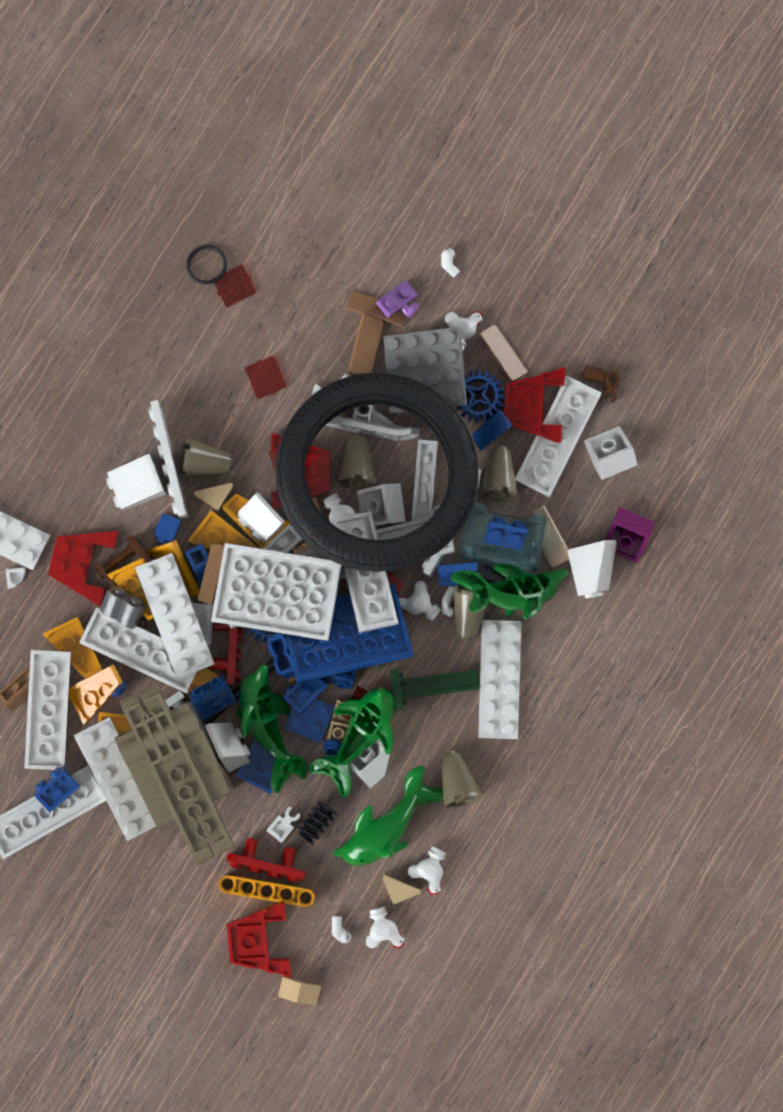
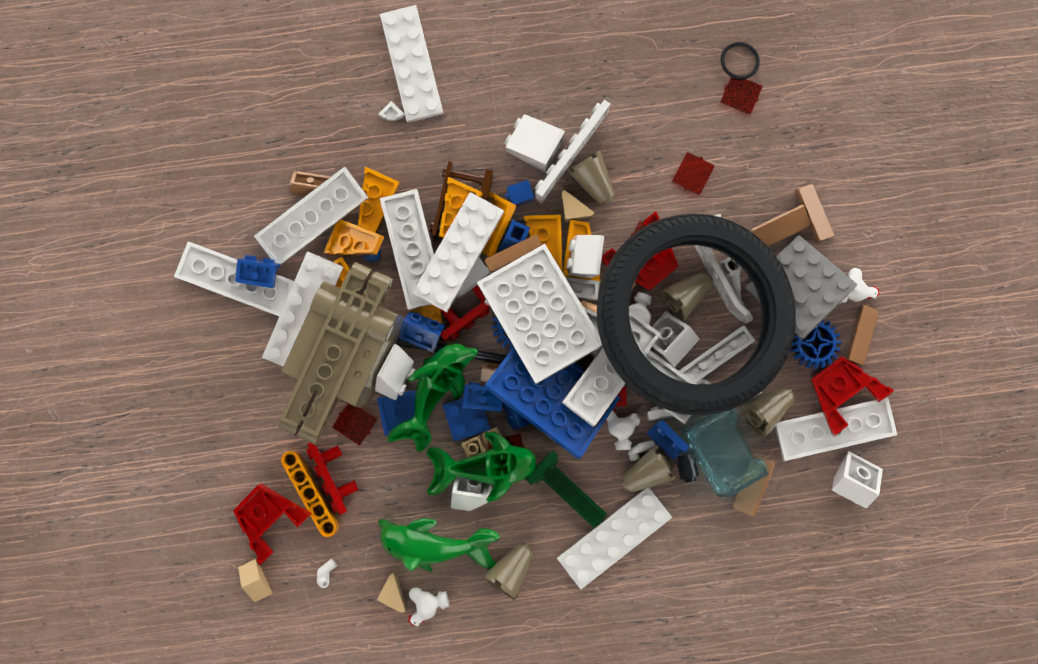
camera: 55 degrees right, 0 degrees up
(73, 558) = (439, 144): red wing -> none
(123, 607) = (433, 208): dark grey brick -> none
(175, 700) = (395, 305): white plate -> none
(240, 810) = (354, 423): none -> clear red piece
(281, 826) = (367, 464): white plate -> none
(282, 660) = (490, 362): blue brick -> none
(316, 822) = (392, 487): black piece -> none
(332, 746) = (458, 452): blue plate -> none
(383, 930) = (352, 606): white animal -> none
(398, 299) = (837, 223): medium lavender plate -> none
(447, 262) = (895, 235): white arm -> none
(491, 430) = (798, 375): blue slope -> none
(505, 534) = (728, 451): blue bracket -> none
(513, 593) = (692, 496): green animal -> none
(592, 567) = (760, 539): white slope -> none
(611, 380) = (912, 434): reddish brown bar -> none
(630, 533) = (806, 545): magenta slope -> none

